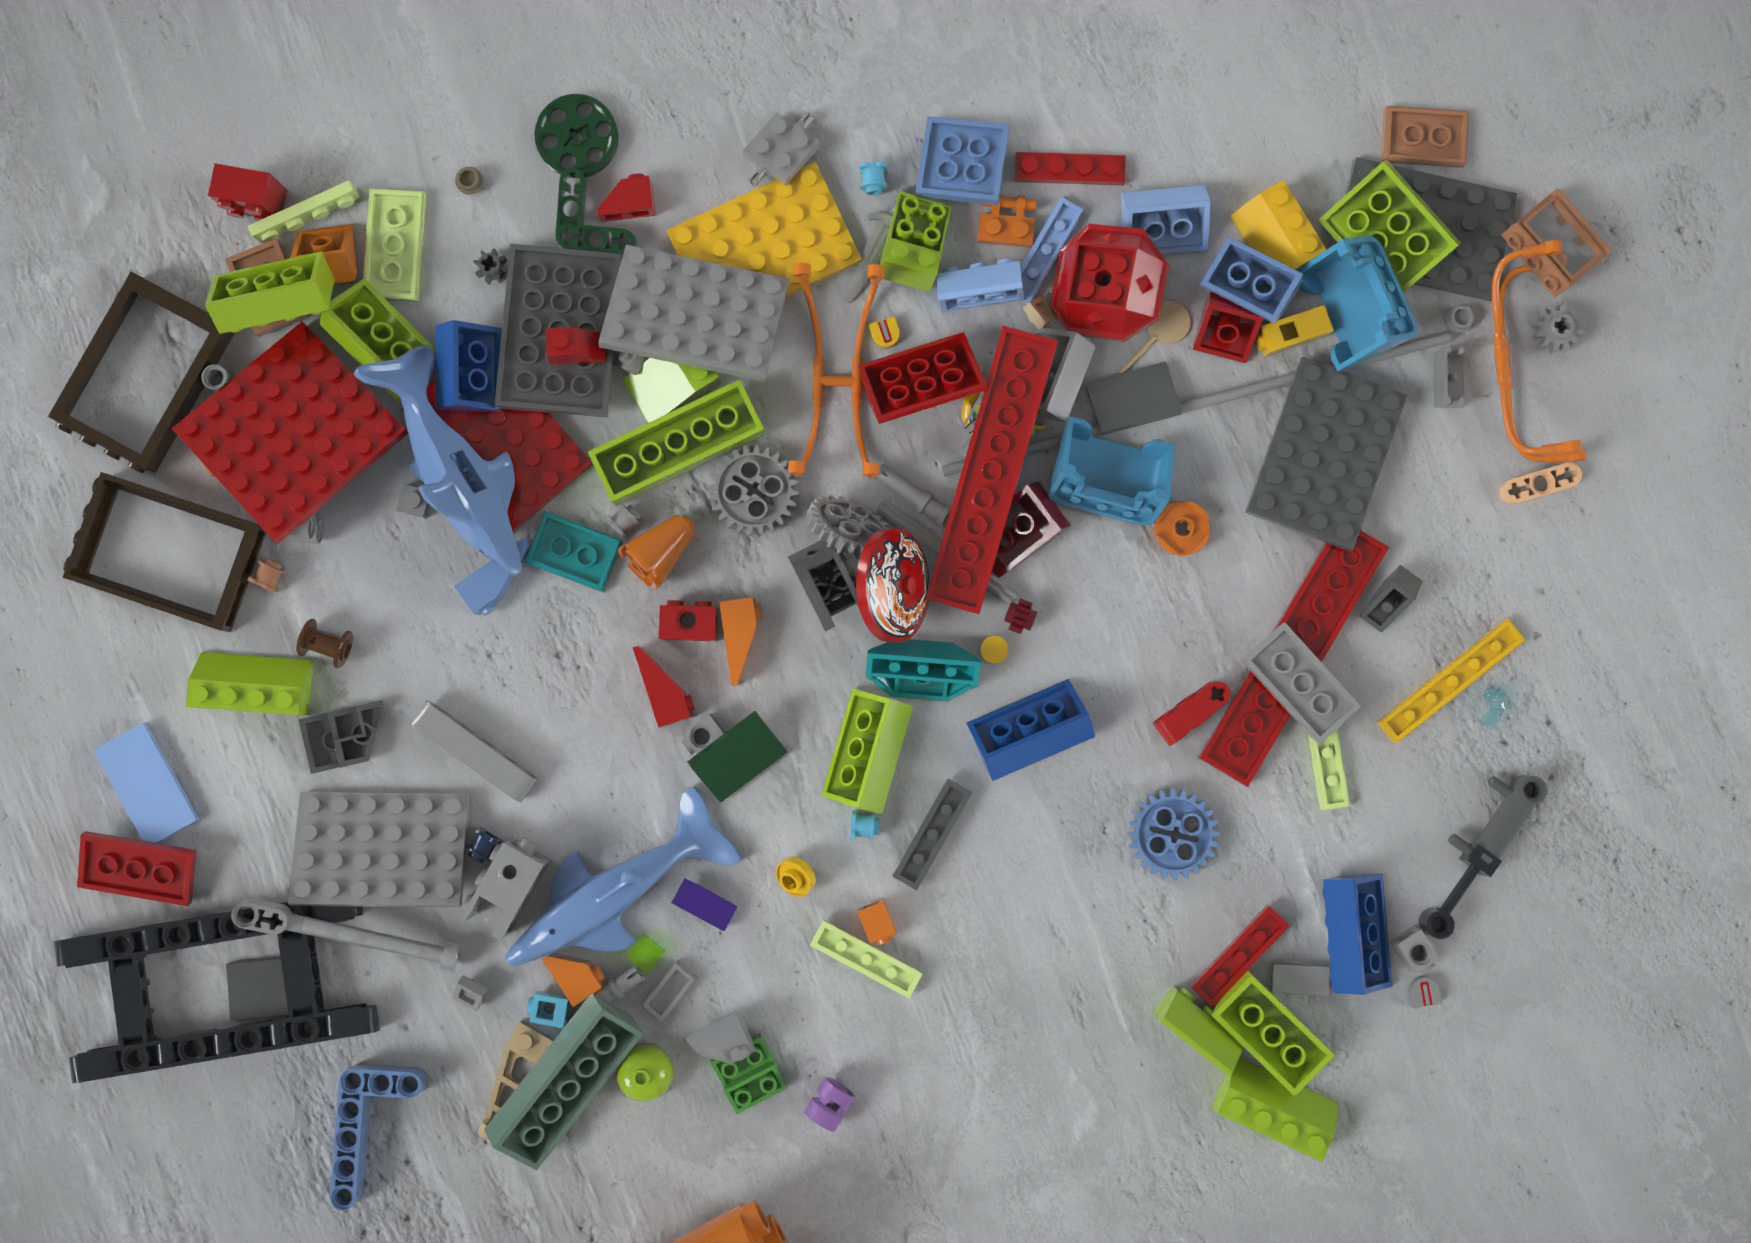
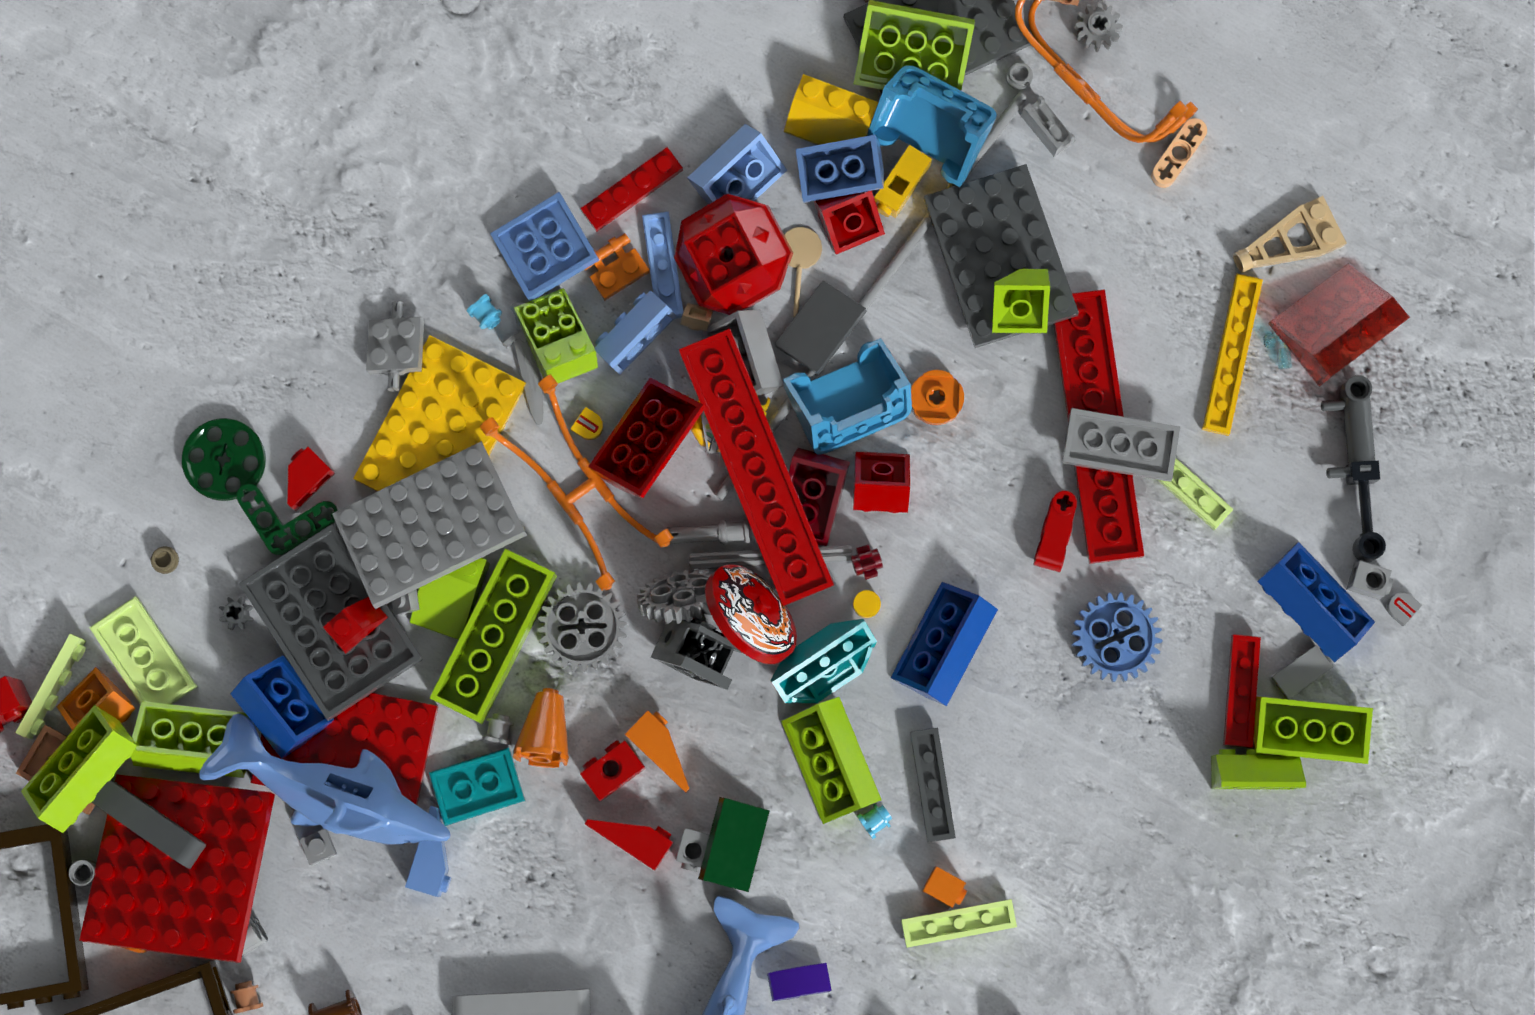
camera: 40 degrees left, 5 degrees down
(292, 378) = (149, 823): none -> dark grey beam
(795, 876) = (853, 902): yellow plate -> none
(1083, 561) = (881, 482): none -> red slope
(1266, 1106) = (1355, 789): lime slope -> none
(1313, 504) = (1021, 302): none -> lime slope
(1391, 598) = (1137, 327): dark grey slope -> none
(1559, 723) = (1338, 322): none -> clear red slope
(1608, 632) = (1320, 225): none -> tan plate

